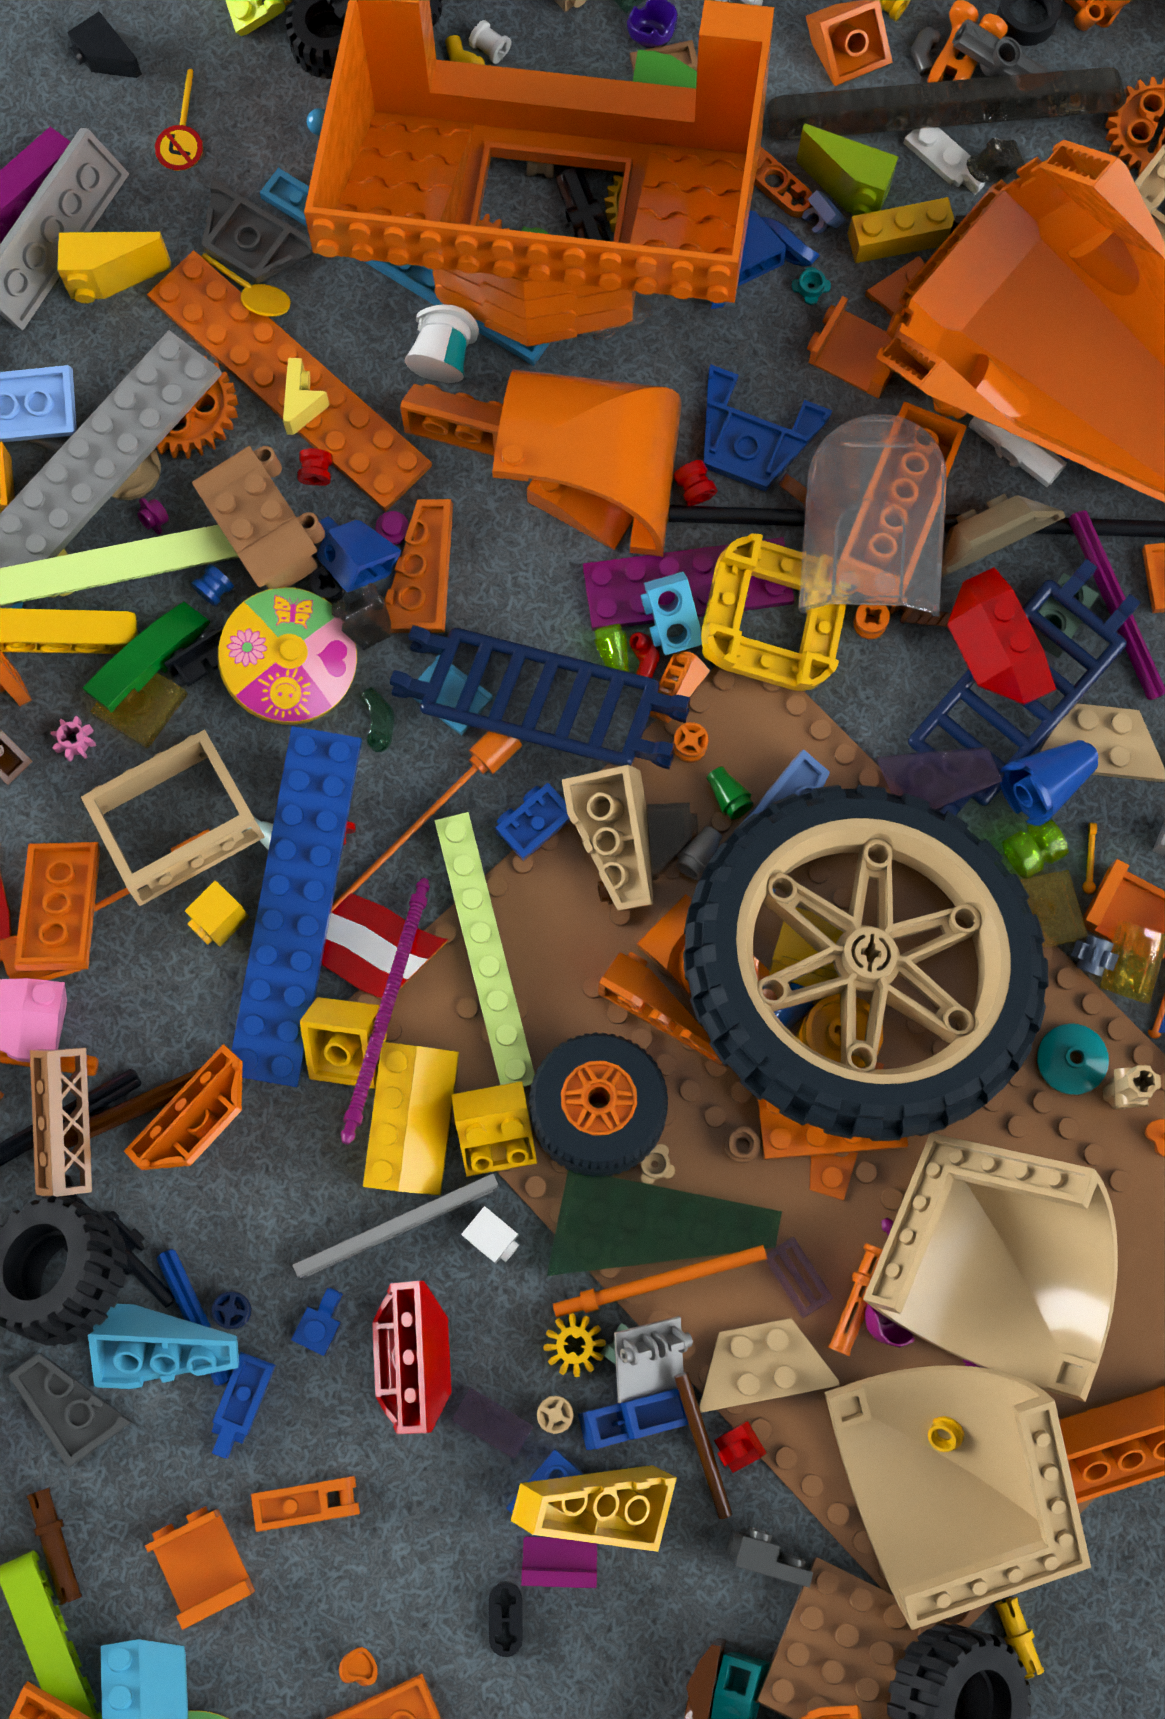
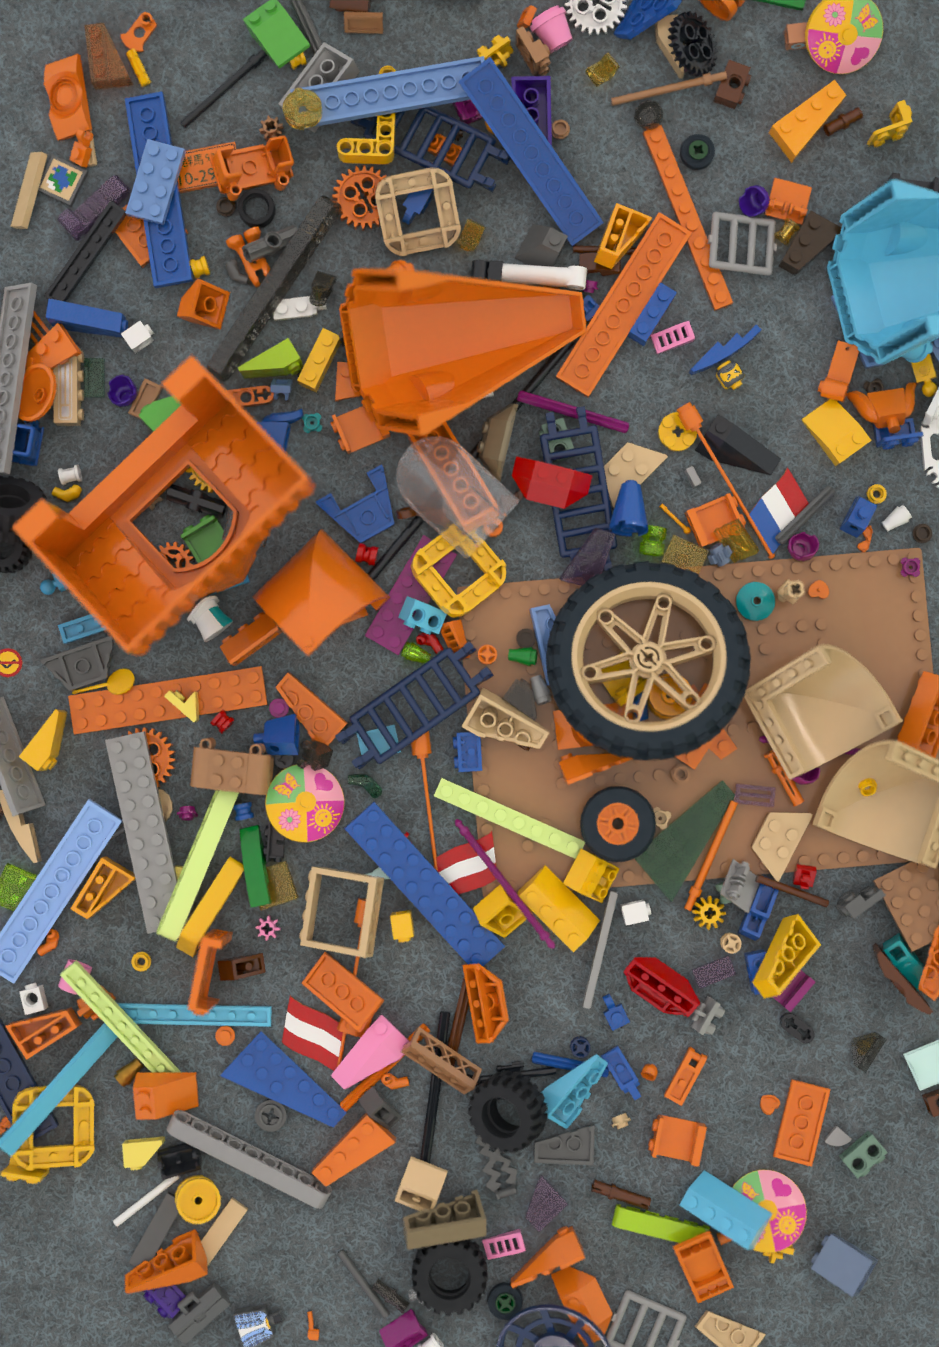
camera: 50 degrees left, 10 degrees up
(165, 1457) = (620, 1121): none -> tan plate
(270, 1443) = (649, 1072): none -> orange hinge
(417, 1458) = (704, 1015): none -> light grey hips
(756, 777) = (525, 638): none -> dark brown plate

